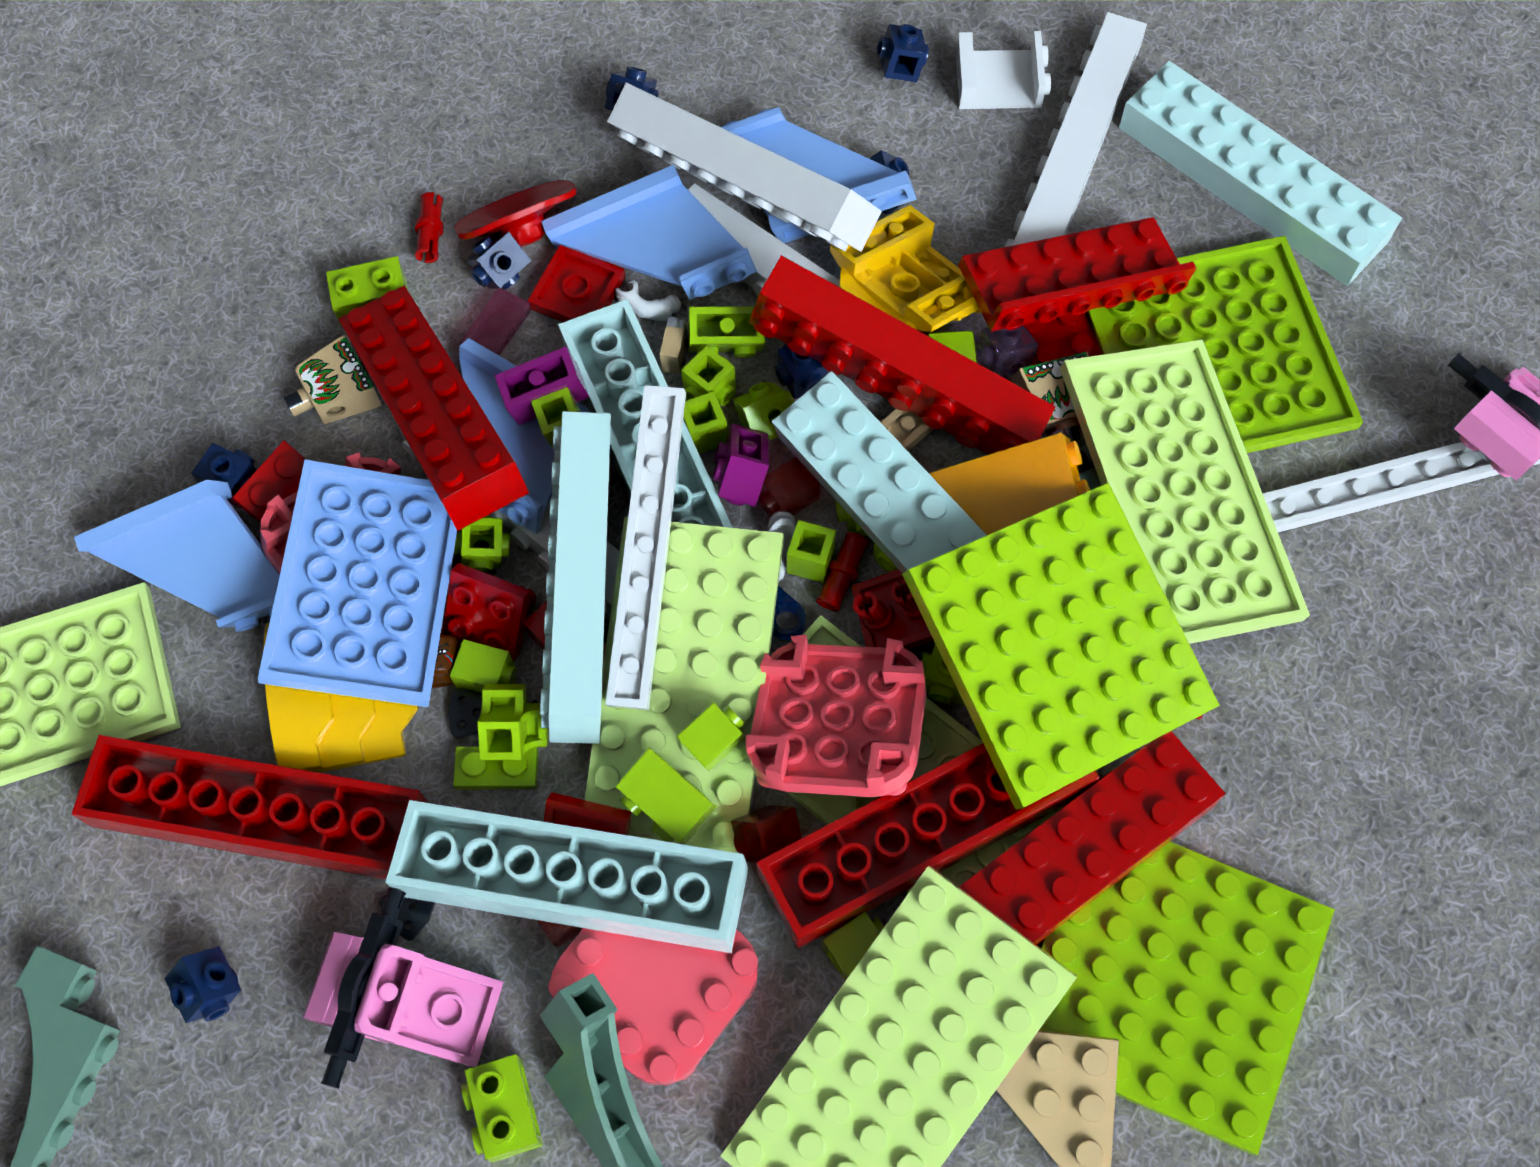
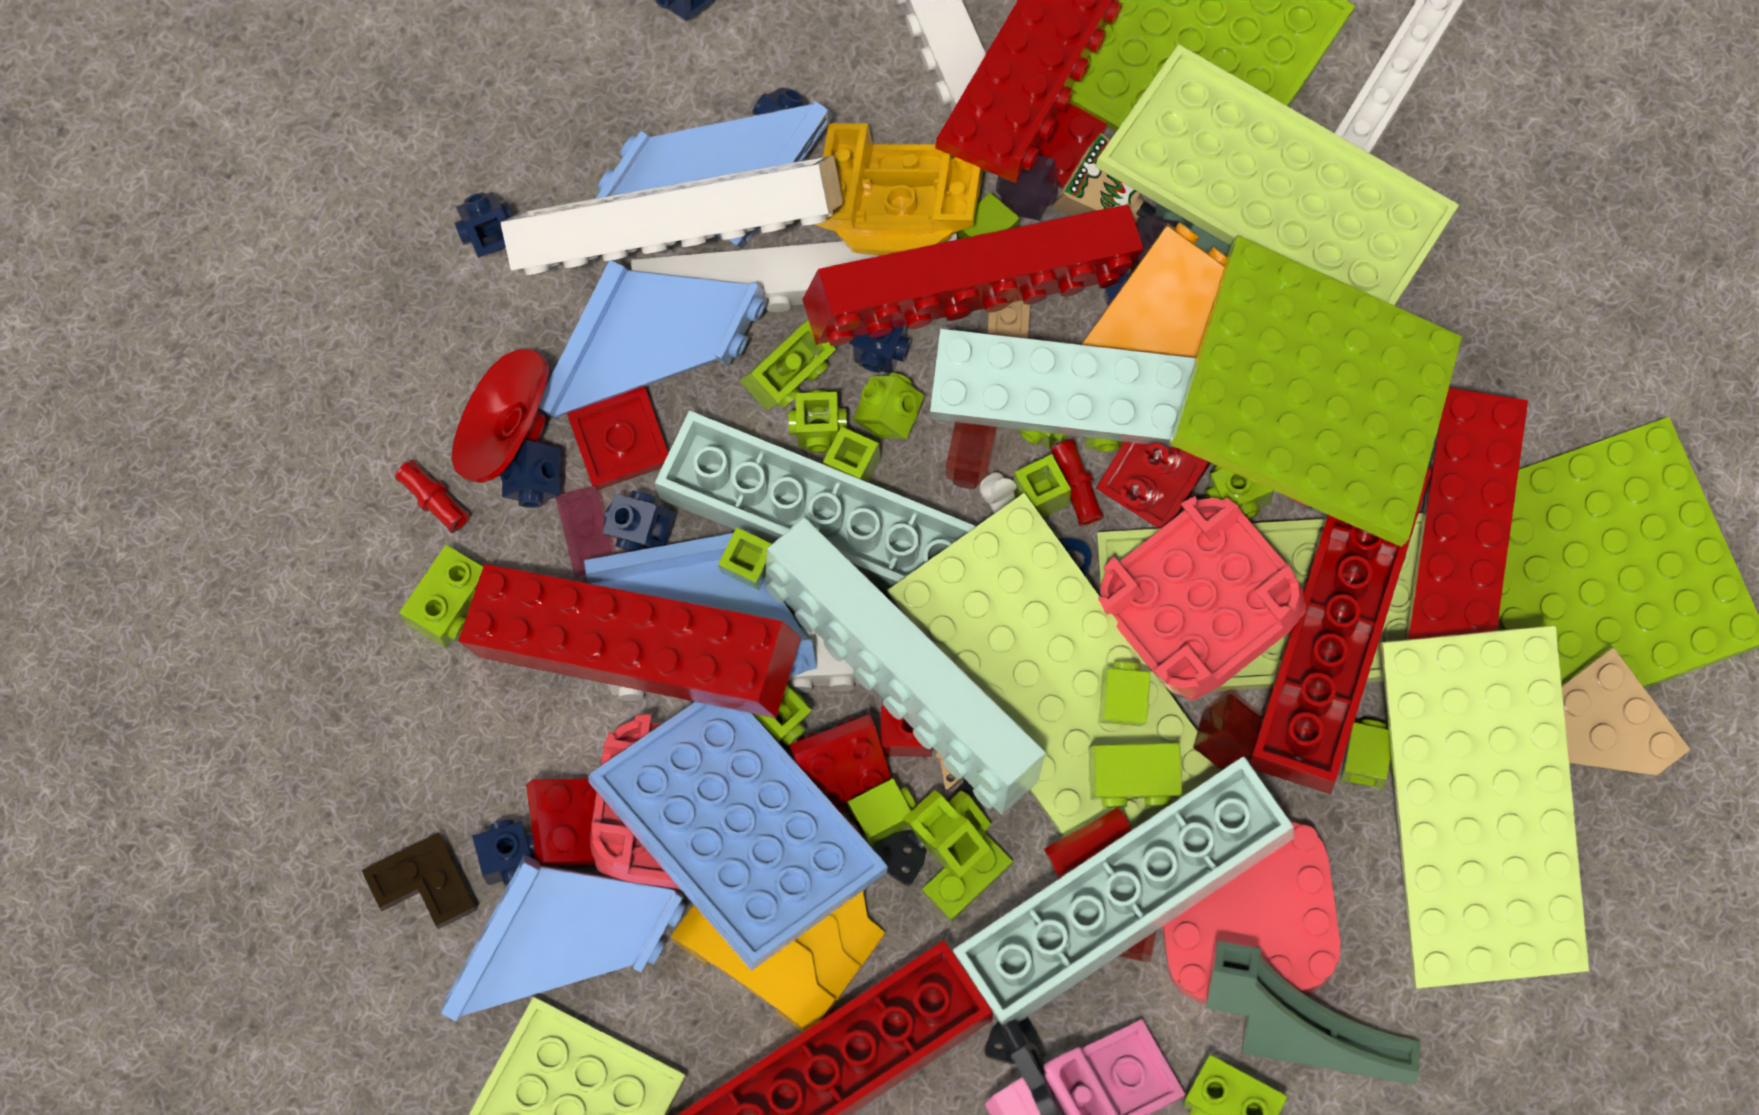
camera: 40 degrees left, 5 degrees up
(174, 449) = (423, 870): none -> dark brown plate
(333, 384) = (505, 700): torso -> none
(526, 340) = (637, 521): none -> dark blue brick
(537, 379) = (703, 544): magenta brick -> none
(646, 548) = (932, 590): white plate -> none
(654, 310) = (704, 399): white piece -> none
(673, 346) = (754, 415): tan piece -> none
(741, 465) = (923, 466): magenta brick -> none

